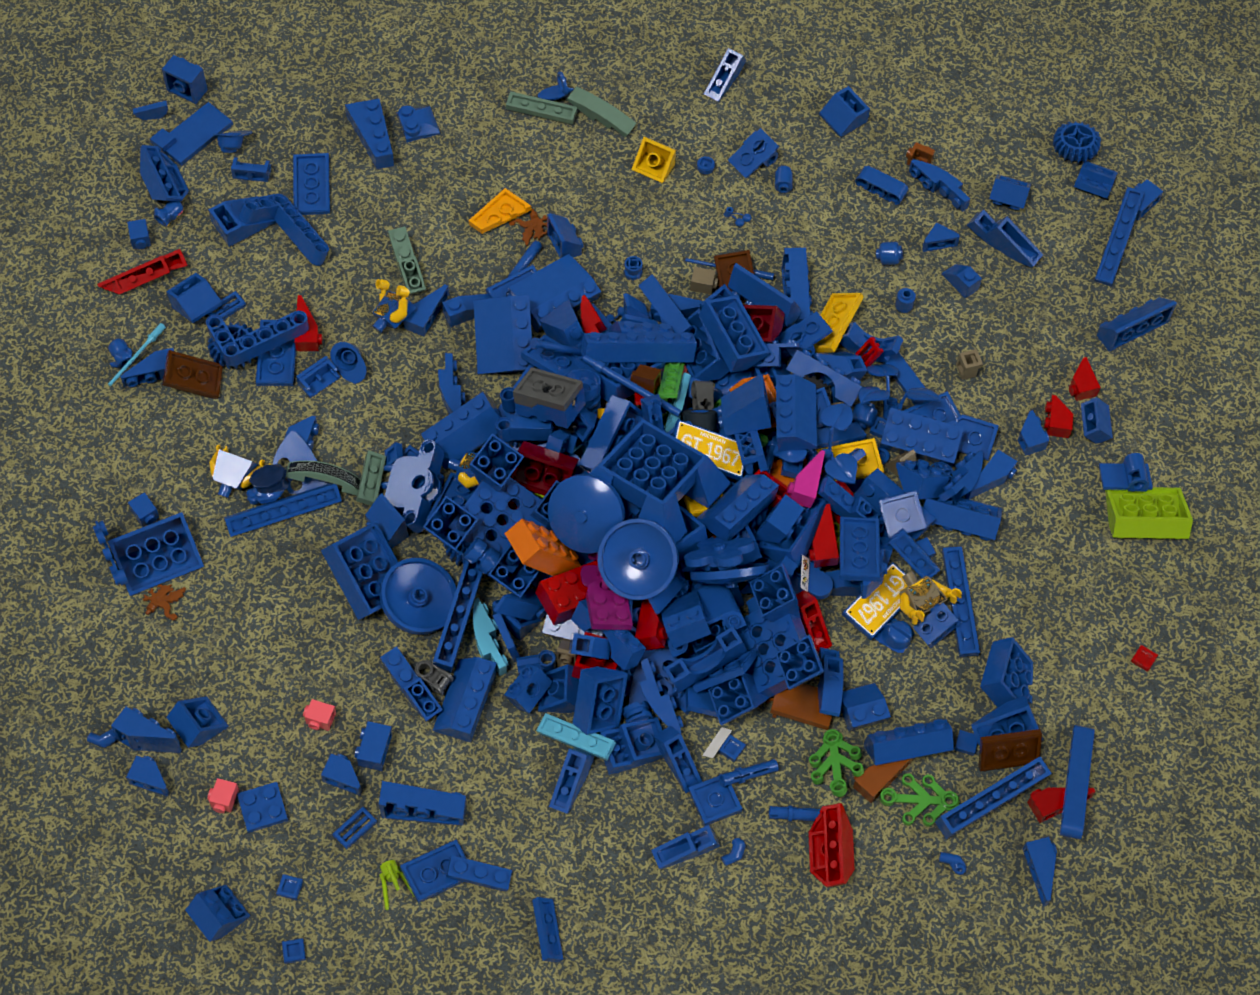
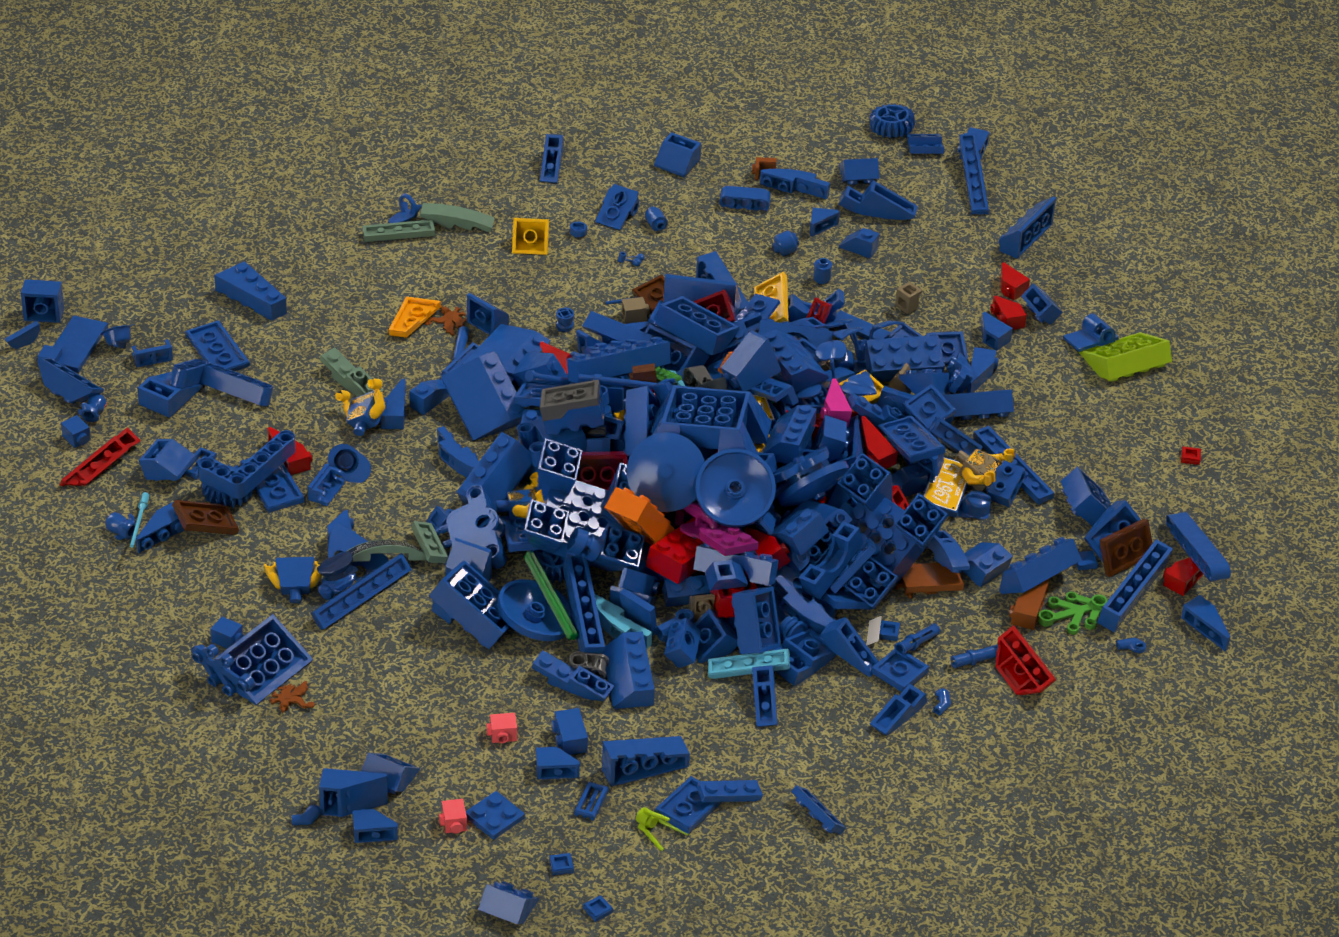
camera: 25 degrees left, 20 degrees down
(417, 122) = (287, 275): blue slope -> none
(438, 592) = (551, 596): none -> green axle
(835, 760) = (973, 594): bright green plant -> none

